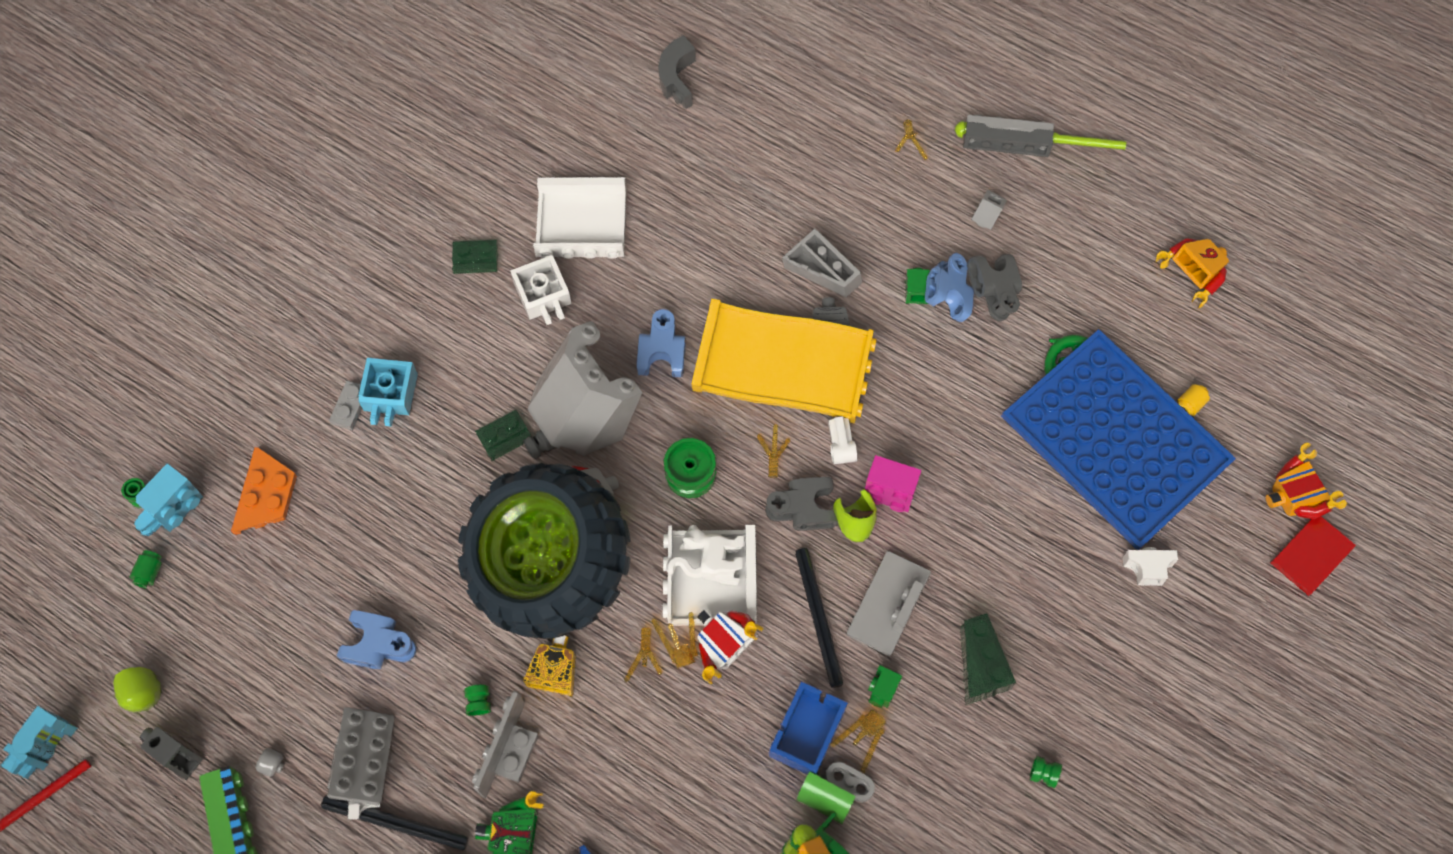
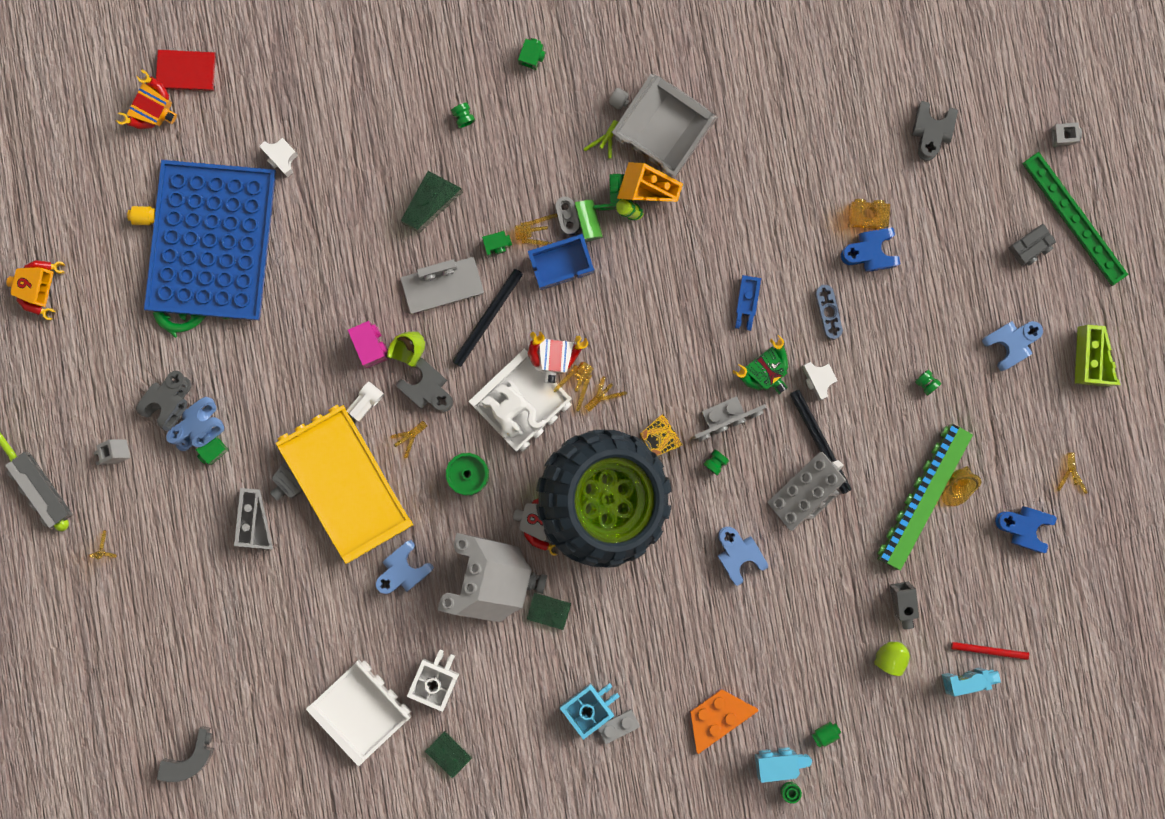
camera: 135 degrees left, 20 degrees up
(270, 762) = (856, 543): light grey piece -> none

